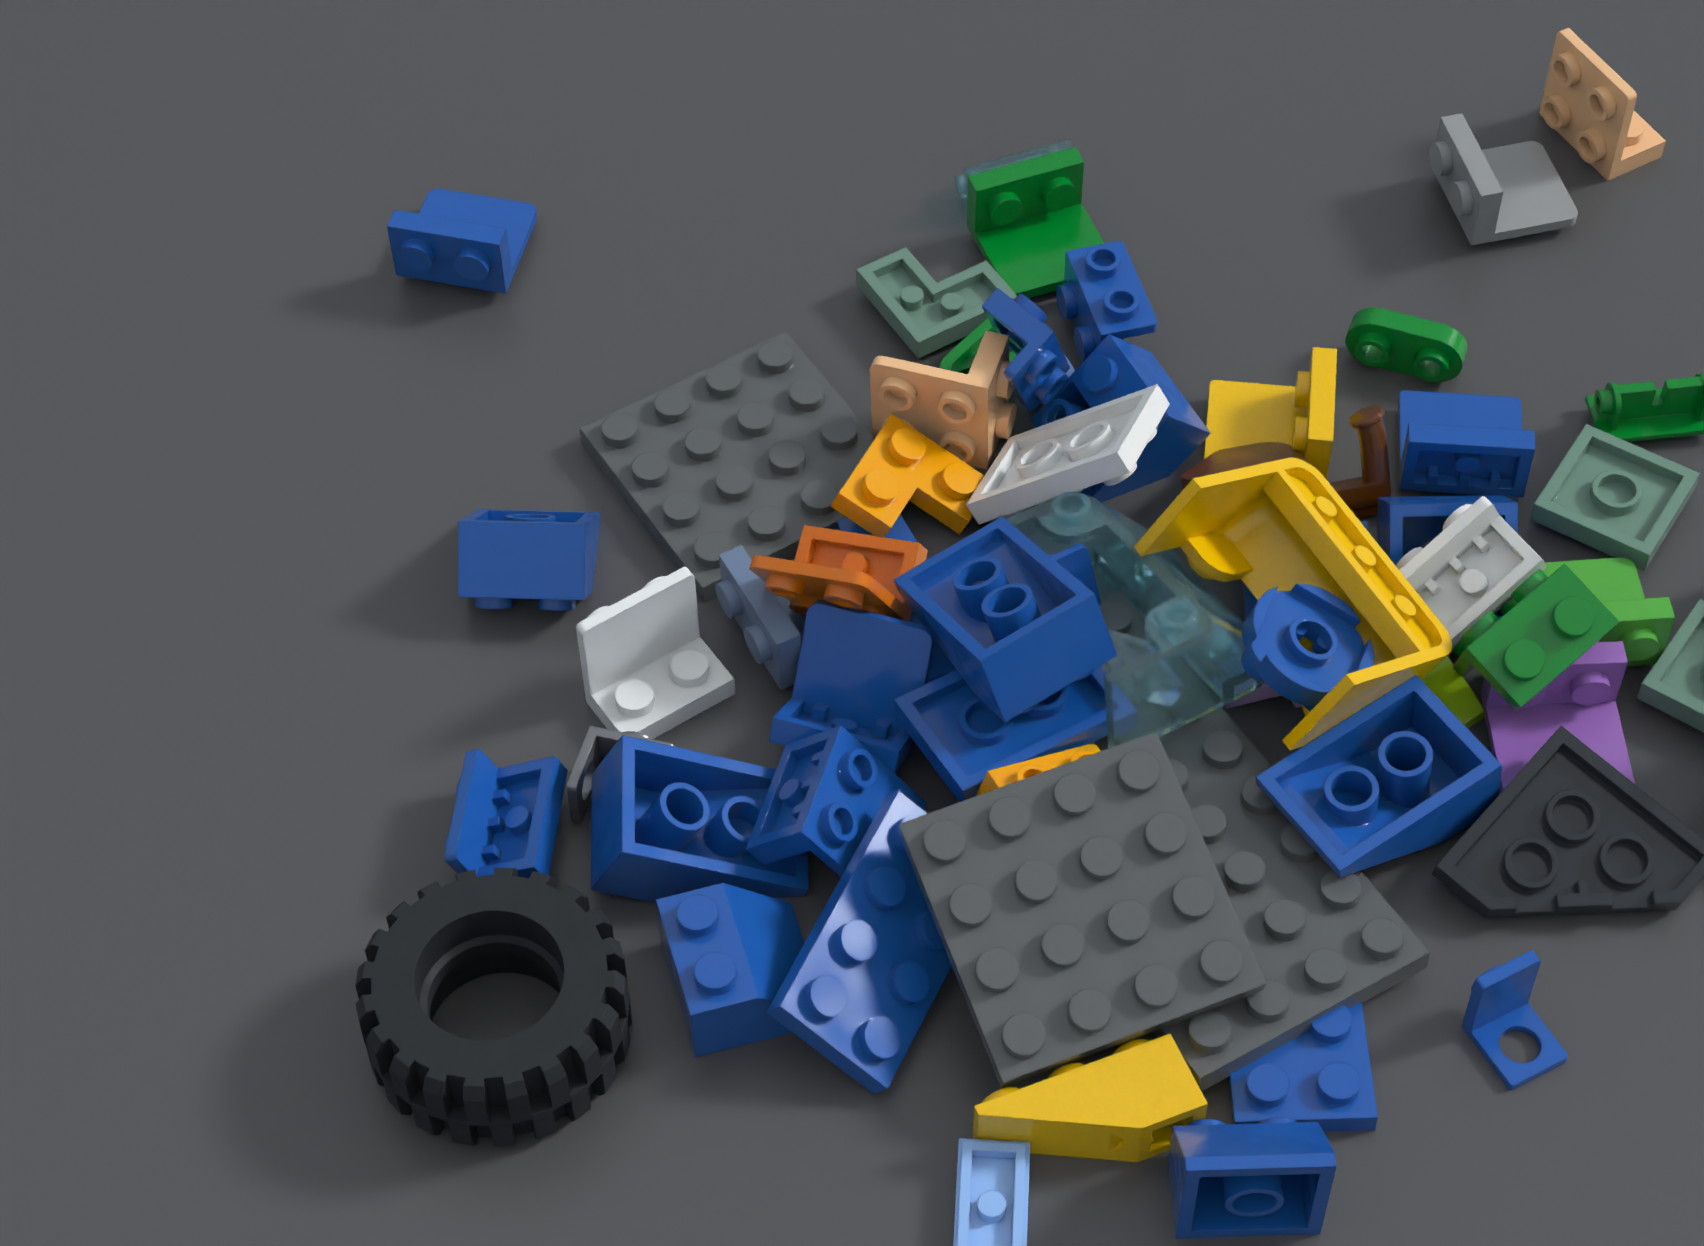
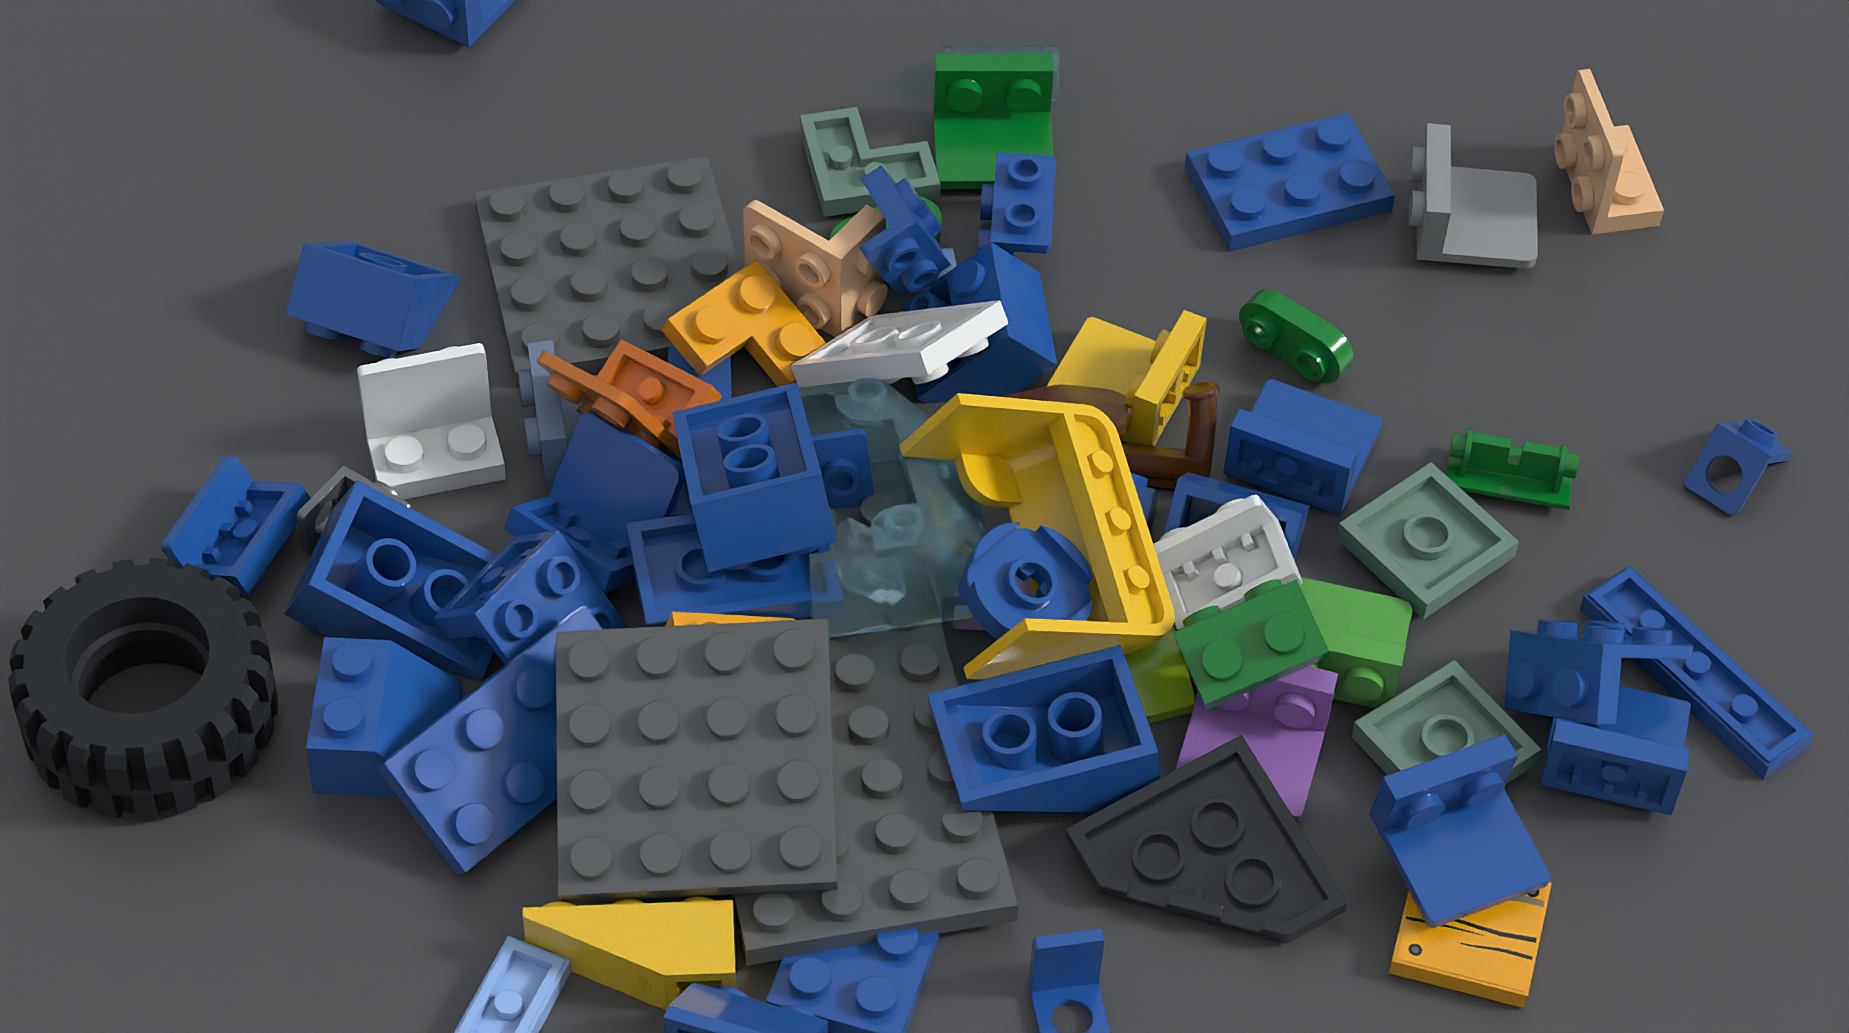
camera: 15 degrees right, 0 degrees up
(1323, 207) = (1289, 181): none -> blue plate

